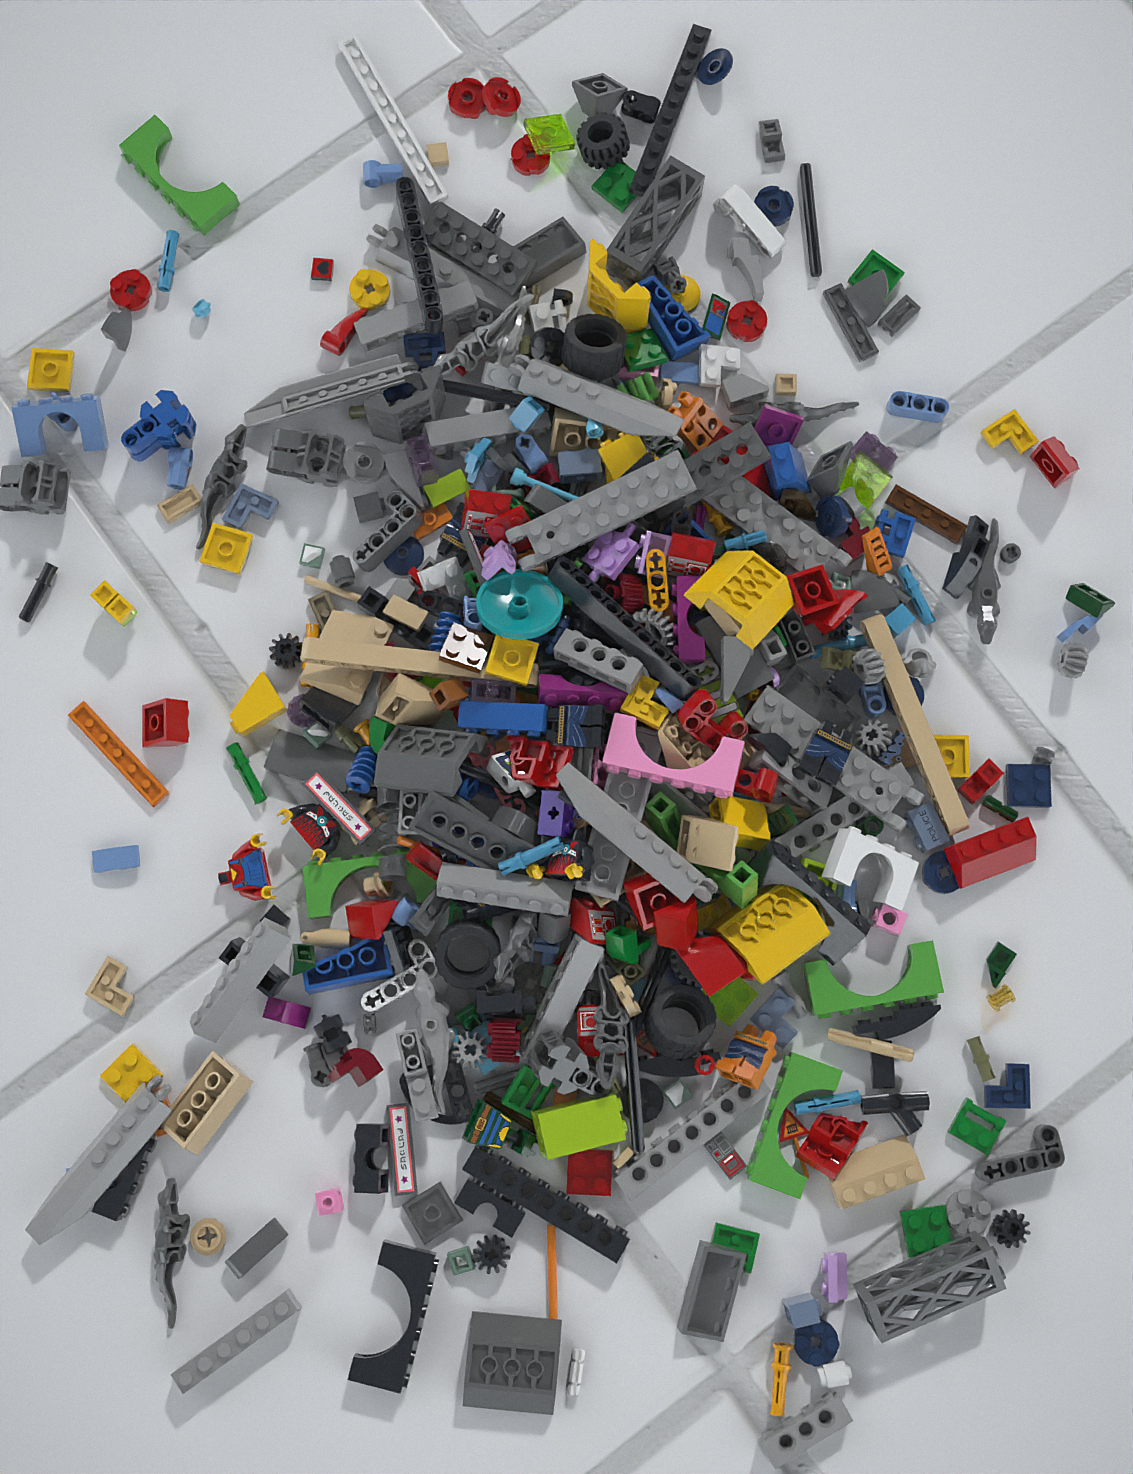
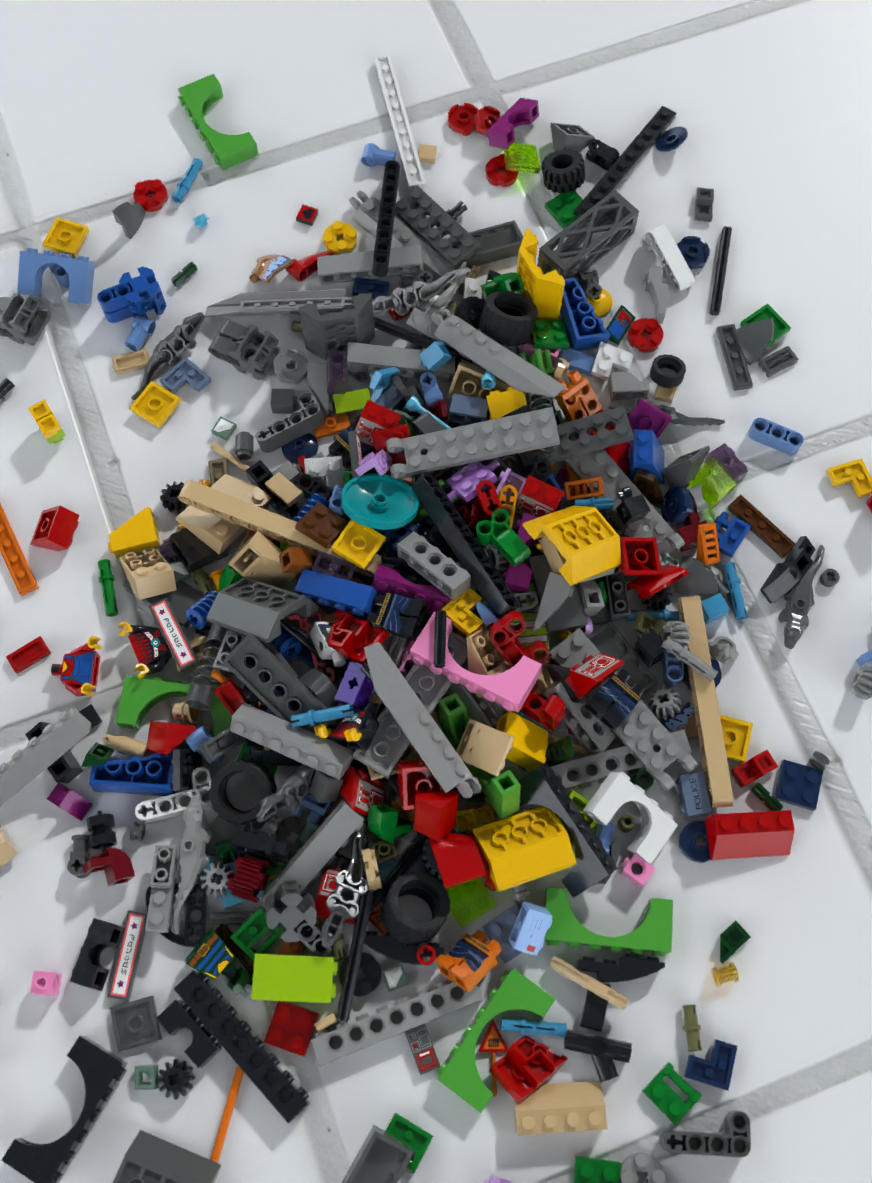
camera: 20 degrees right, 10 degrees down
(186, 869) = (28, 654): none -> red tile
(202, 384) = (187, 271): none -> dark green piece
(288, 746) = (148, 573): none -> tan slope
(301, 347) = (268, 267): none -> medium nougat arm
(534, 76) = (521, 113): none -> magenta arch
(576, 303) = (504, 282): none -> green brick
(631, 742) = (440, 639): none -> black axle
(640, 567) = (484, 500): none -> red beam
(665, 612) = (503, 538): none -> green piece
(714, 532) = (569, 492): none -> orange slope
(785, 348) = (667, 380): none -> black tyre
(787, 536) = (631, 508): none -> black brick
(797, 734) = (592, 673): none -> red slope
(800, 1009) = (530, 928): none -> light blue brick
(862, 878) = (622, 826): none -> olive pin
(881, 684) = (689, 658): none -> light grey pin

